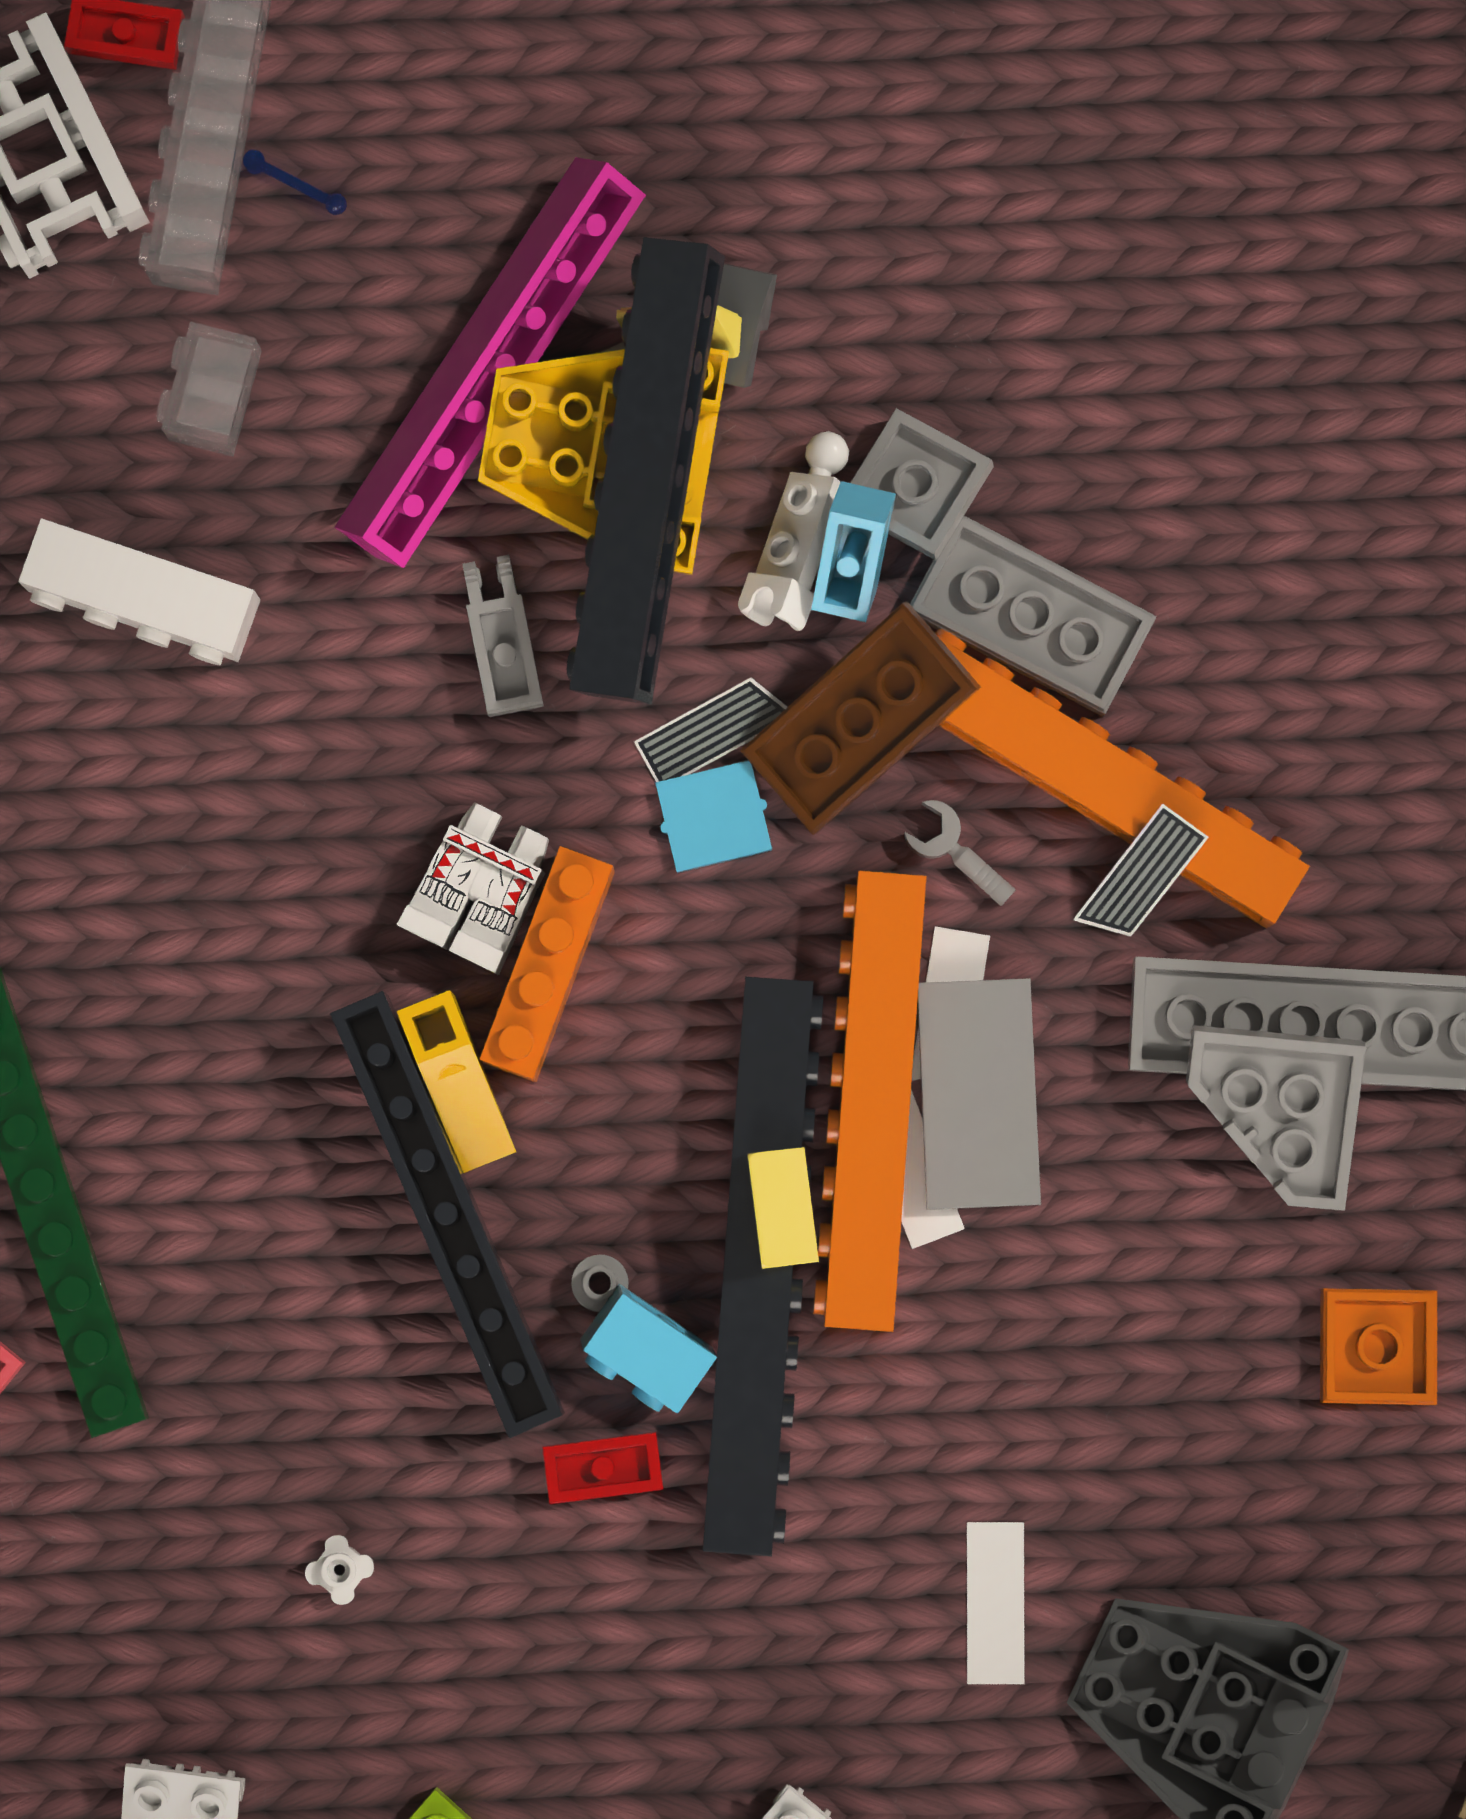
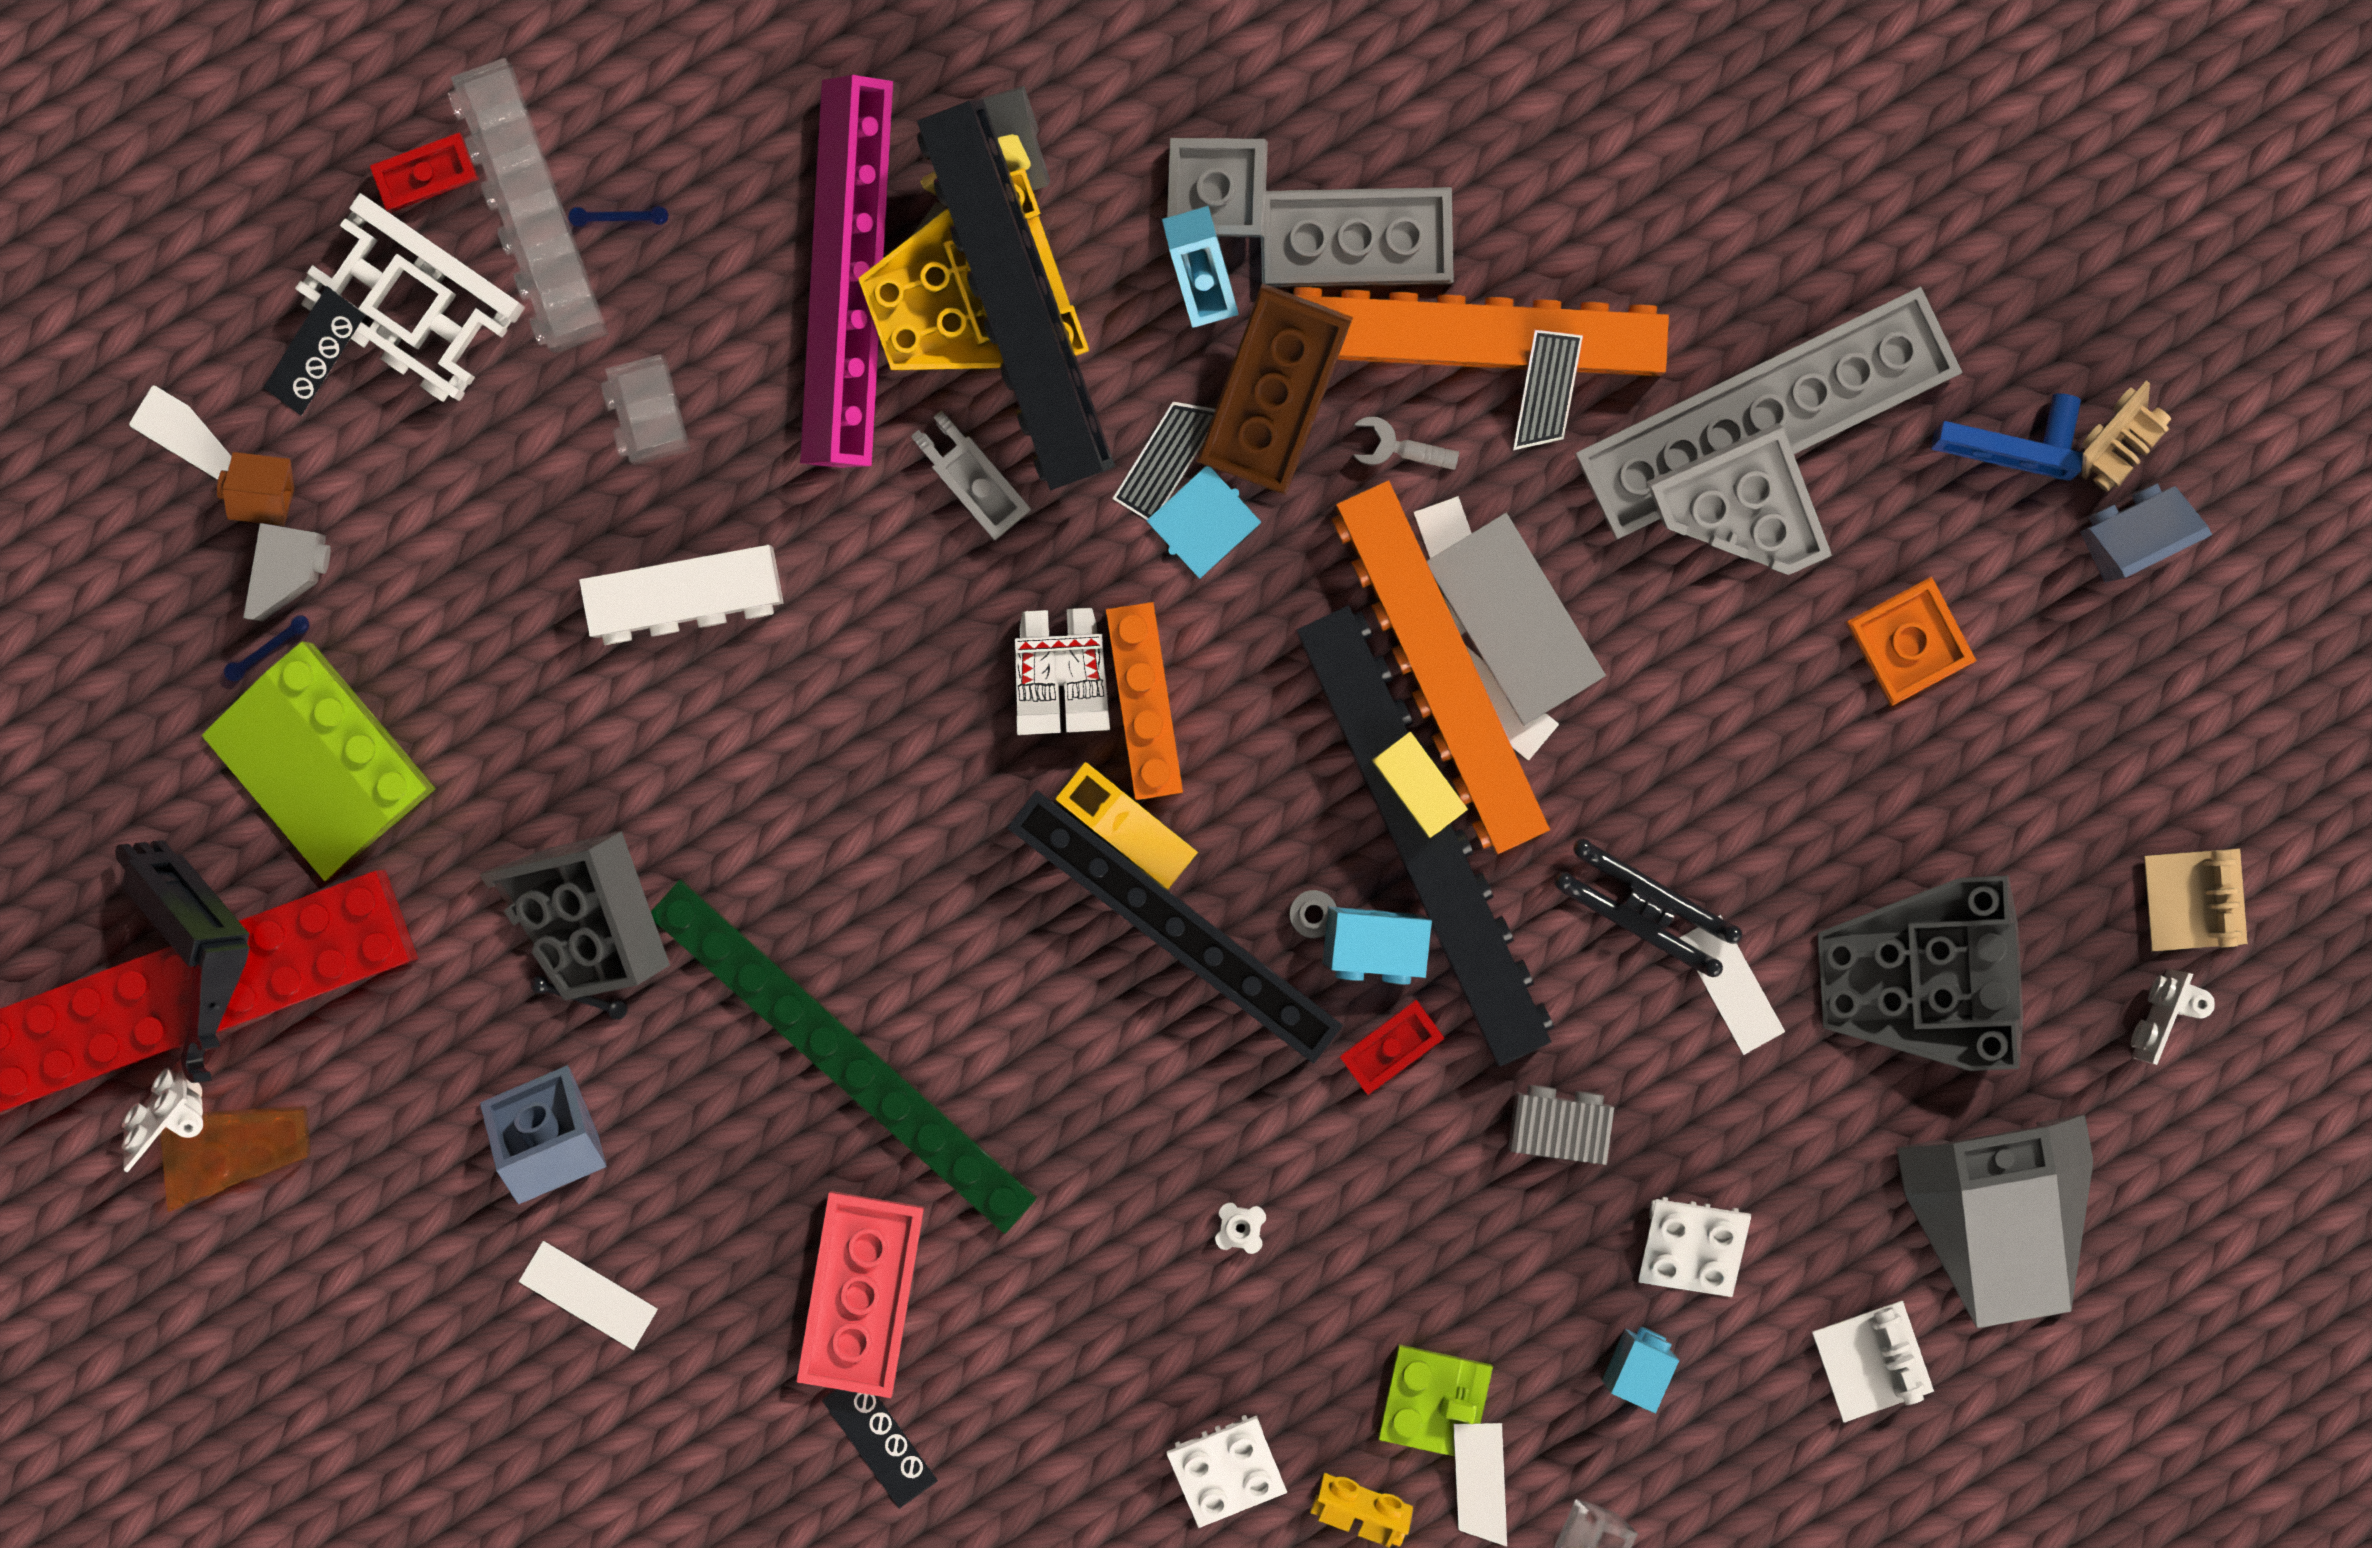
camera: 25 degrees left, 5 degrees up
(733, 1651) = (1561, 1126): none -> light grey brick
(796, 539) = (1150, 278): white plate -> none
(950, 1472) = (1647, 908): none -> black piece

